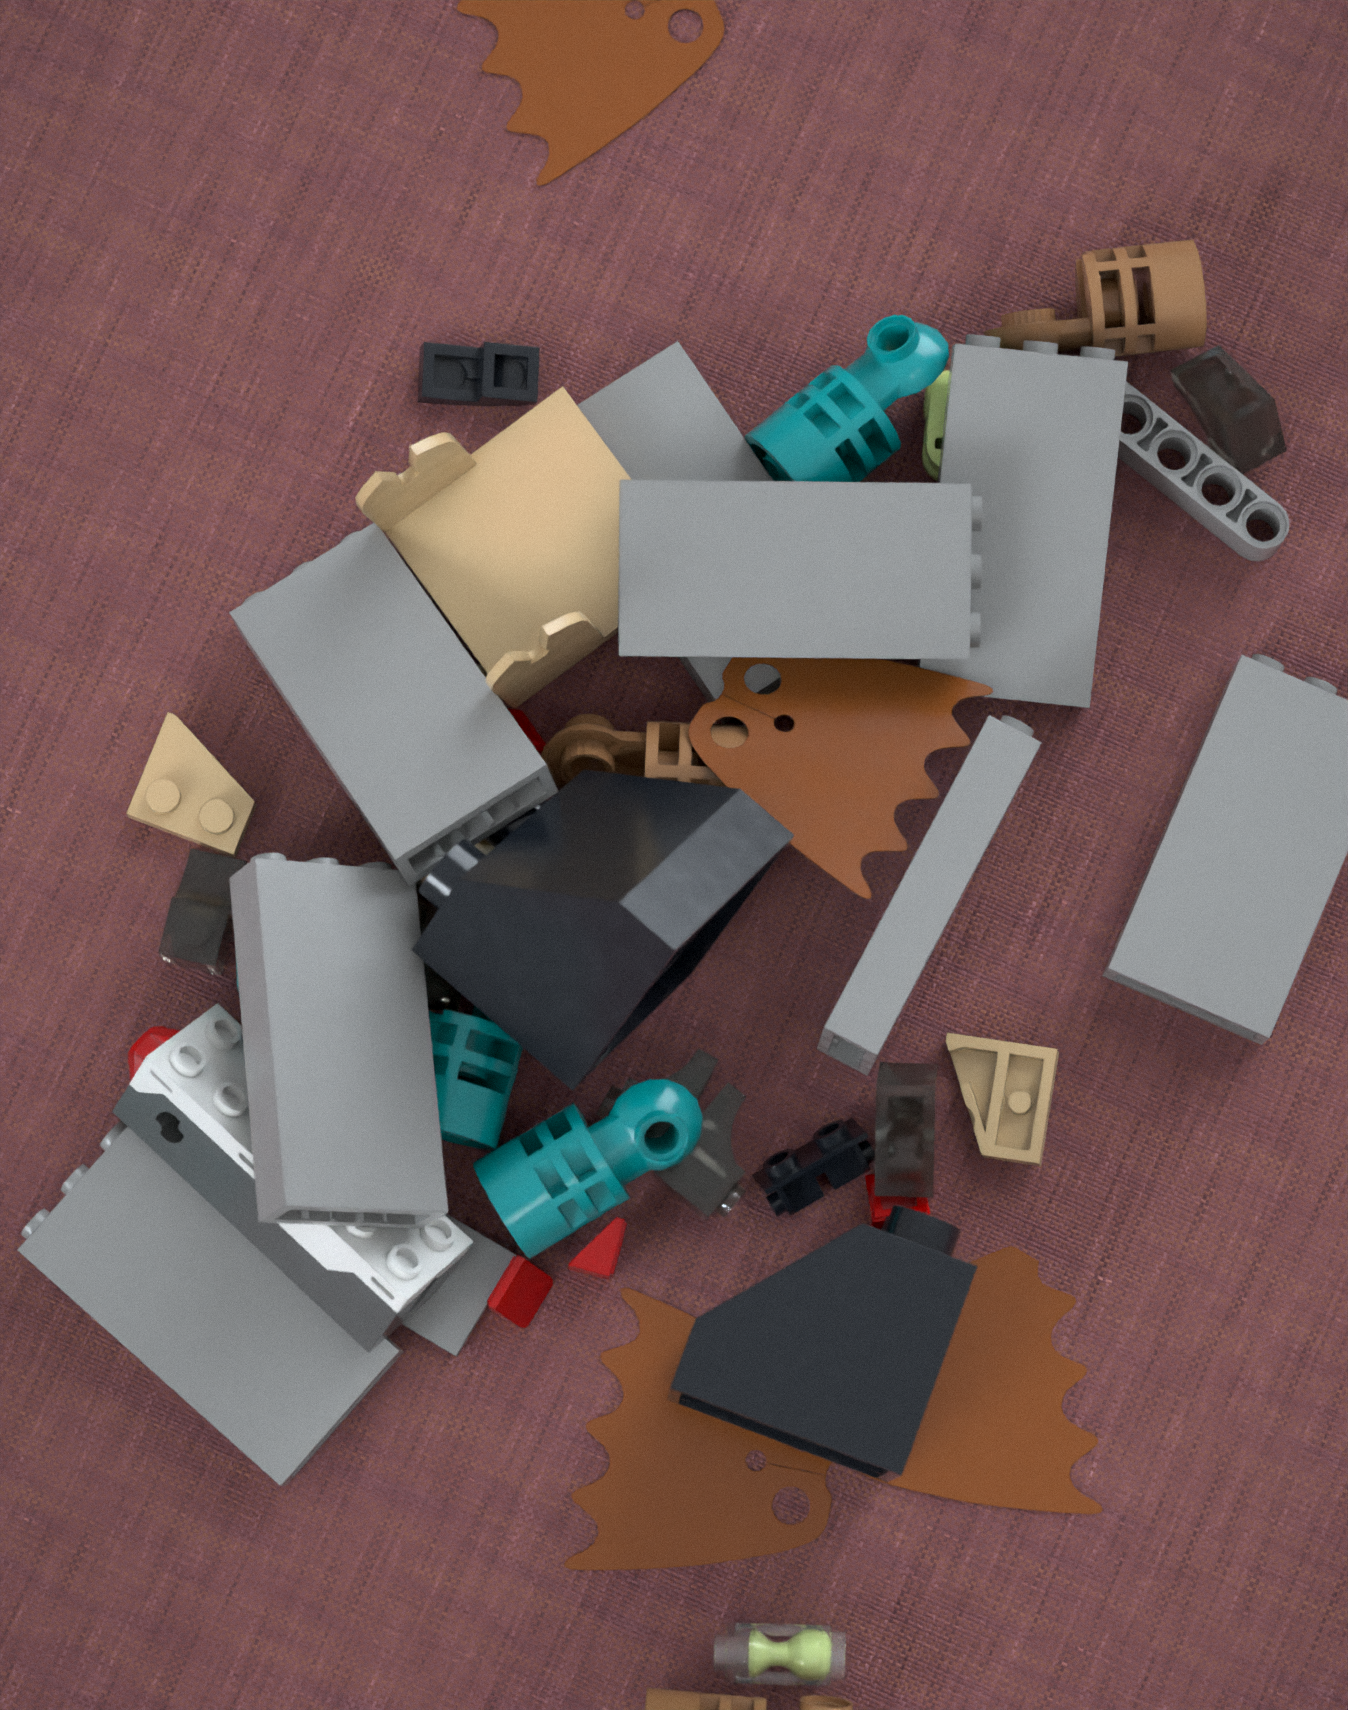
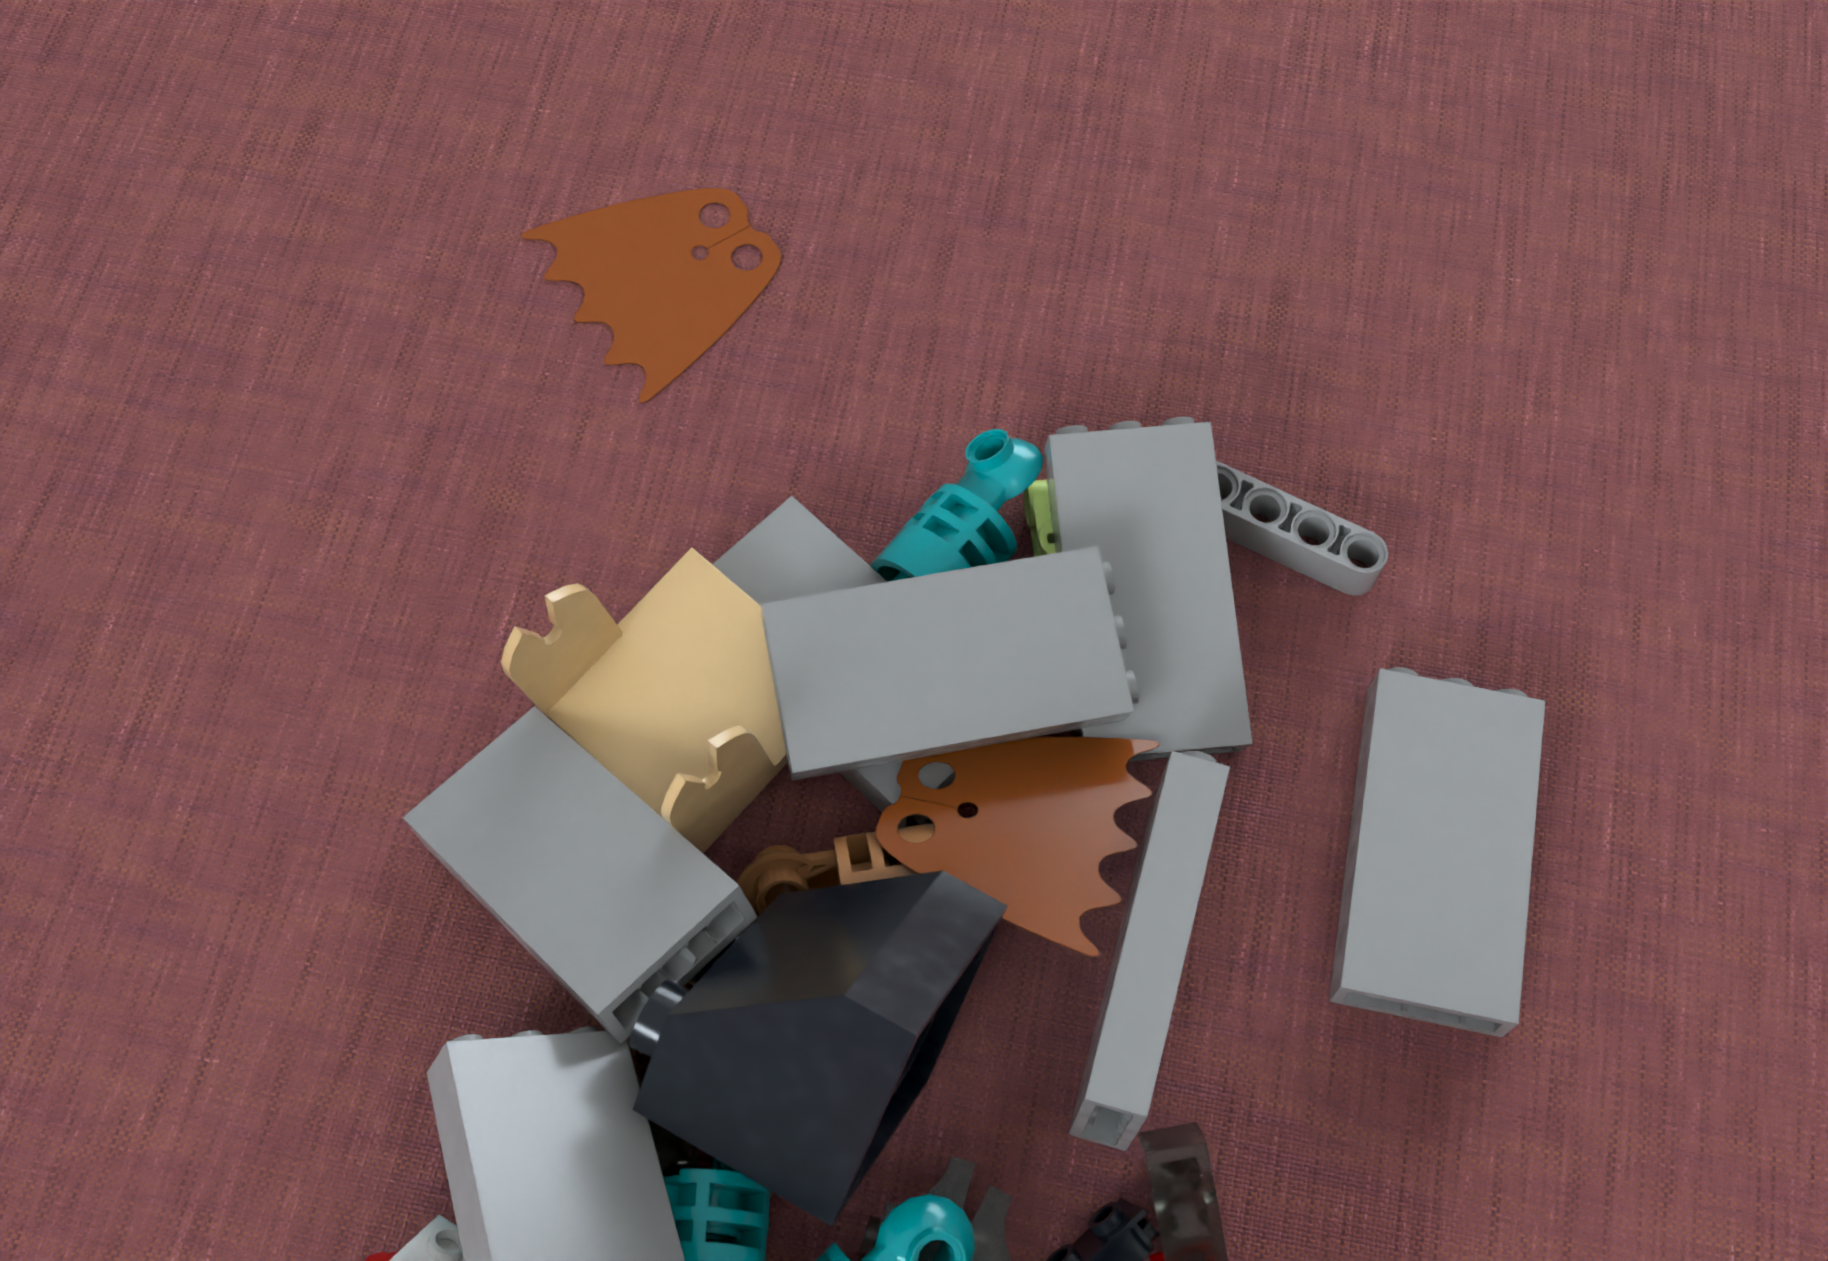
camera: 10 degrees left, 15 degrees down
(191, 792) = (389, 1004): tan wing -> none
(201, 914) = (406, 1132): clear smoke arch -> none
(478, 375) = (616, 568): black slope -> none
(1006, 1094) = (1271, 1140): tan wing -> none
(1109, 303) = (1205, 378): medium nougat cylinder -> none
(1231, 408) = (1304, 464): clear smoke arch -> none

